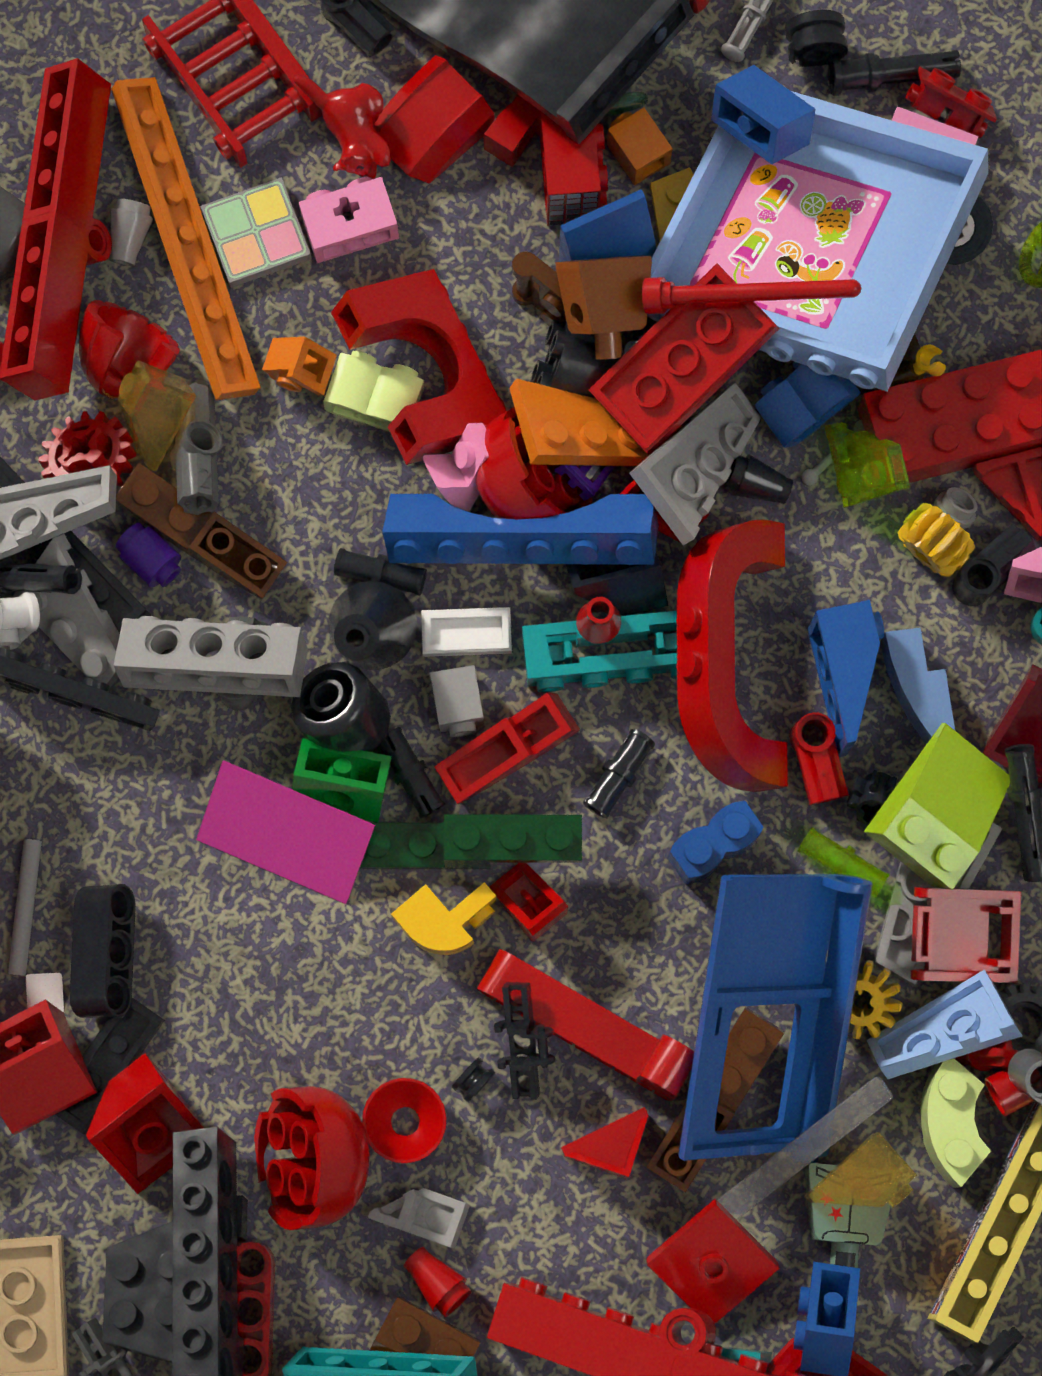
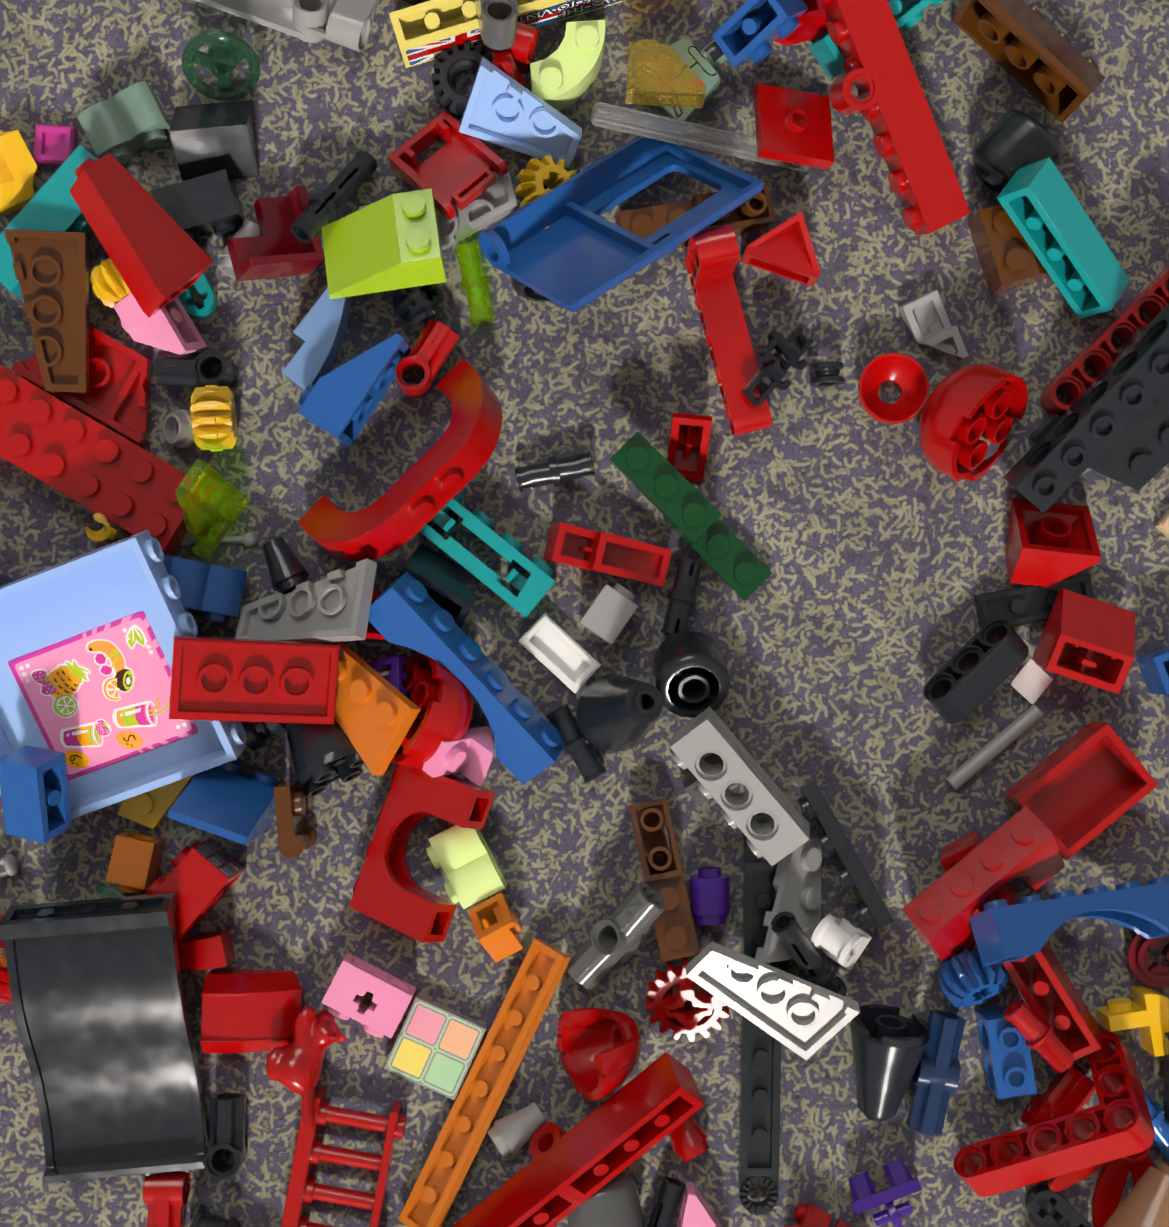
camera: 135 degrees left, 10 degrees up
(153, 409) = (617, 987): clear yellow slope -> none
(285, 832) = (794, 635): dark pink piece -> none
(343, 780) = (732, 631): green brick -> none
(437, 929) = (760, 483): yellow brick -> none
(438, 1282) = (963, 277): red cone -> none
(595, 629) = (484, 579): red cone -> none
(604, 298) = (262, 770): dark orange torso -> none
(663, 295) = (226, 734): red piece -> none
(725, 837) = (530, 368): blue brick -> none

